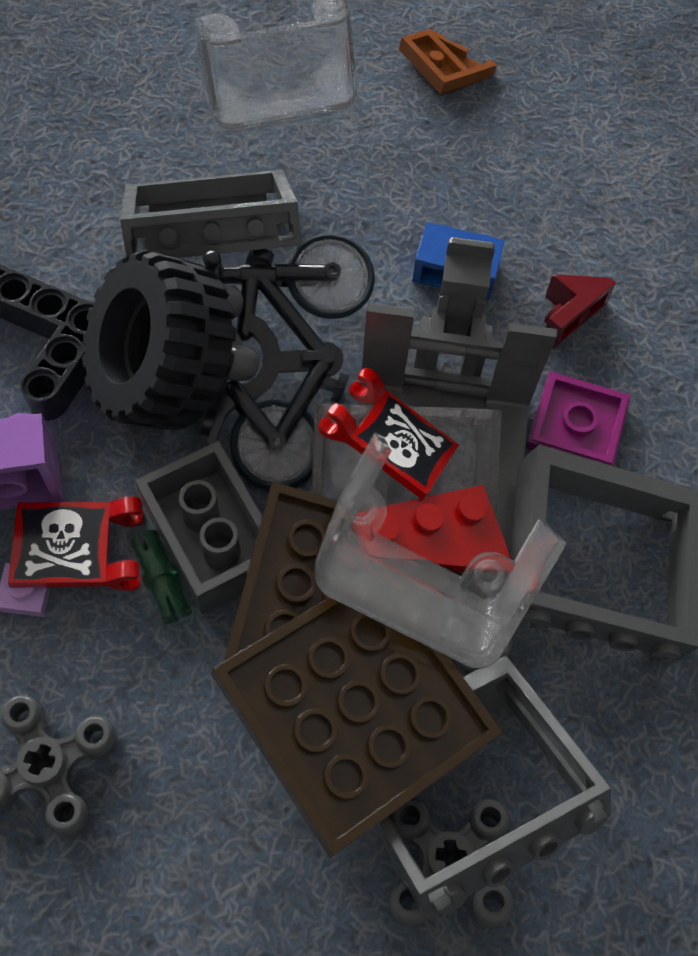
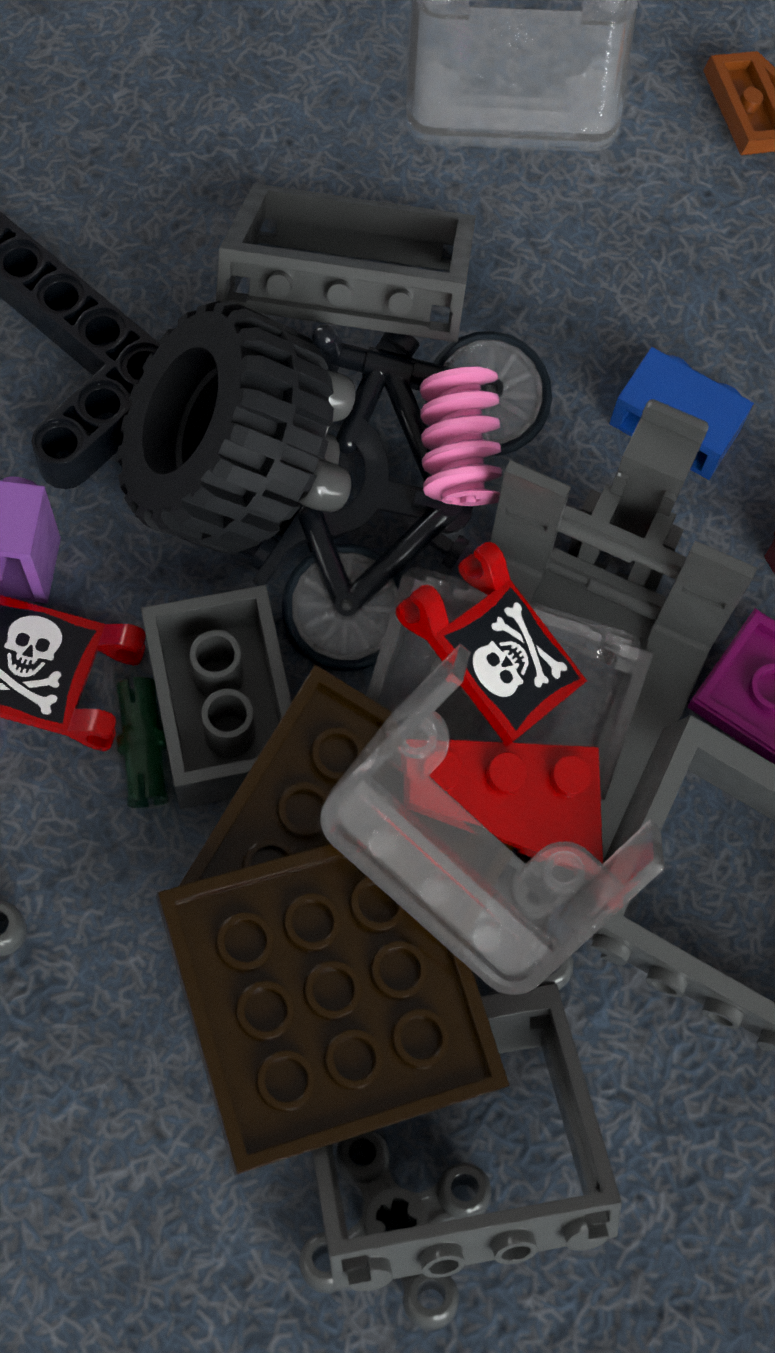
camera: 15 degrees right, 5 degrees up
(320, 305) = (457, 436): none -> bright pink piece

